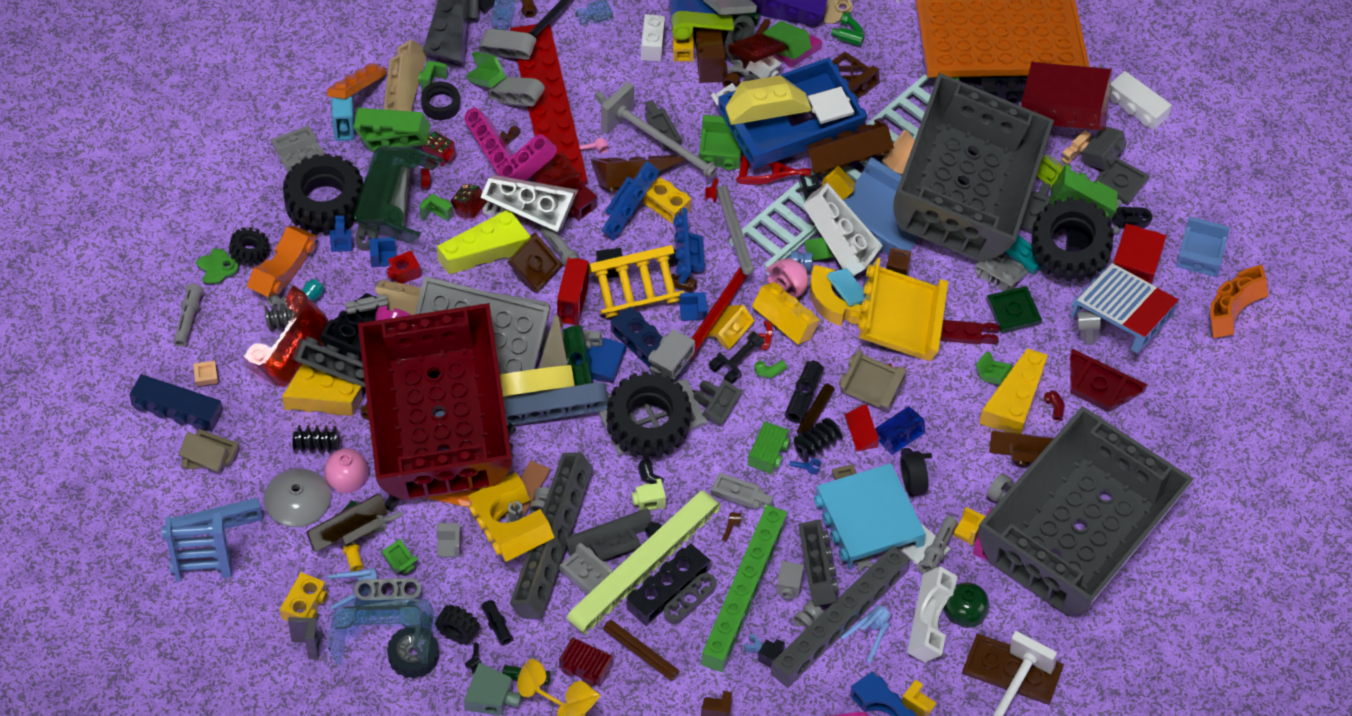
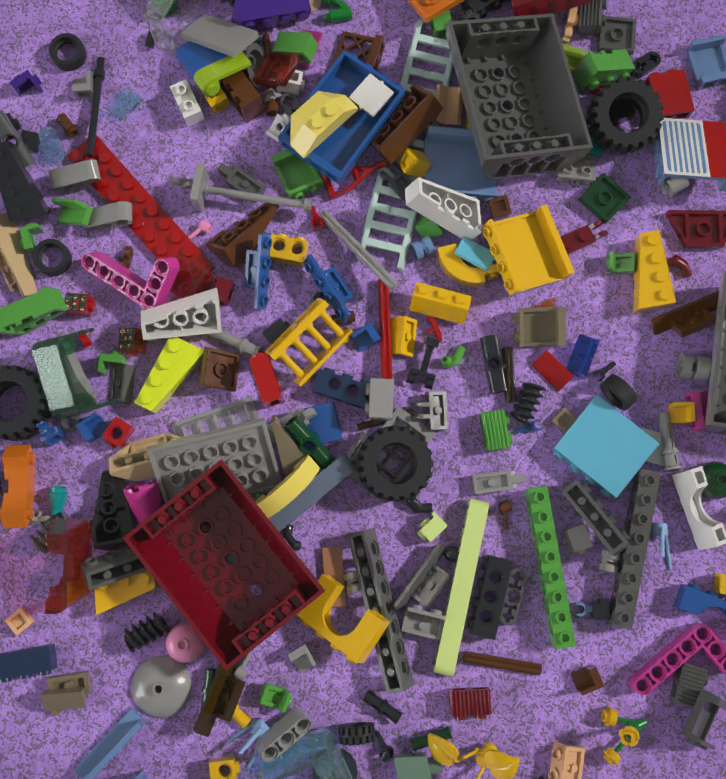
camera: 30 degrees left, 25 degrees up
(366, 304) = (111, 491): light grey axle -> none
(434, 233) = (122, 383): none -> dark grey slope
(515, 513) = (345, 609): light grey pin -> none
(789, 275) = (425, 270): bright pink cylinder -> none

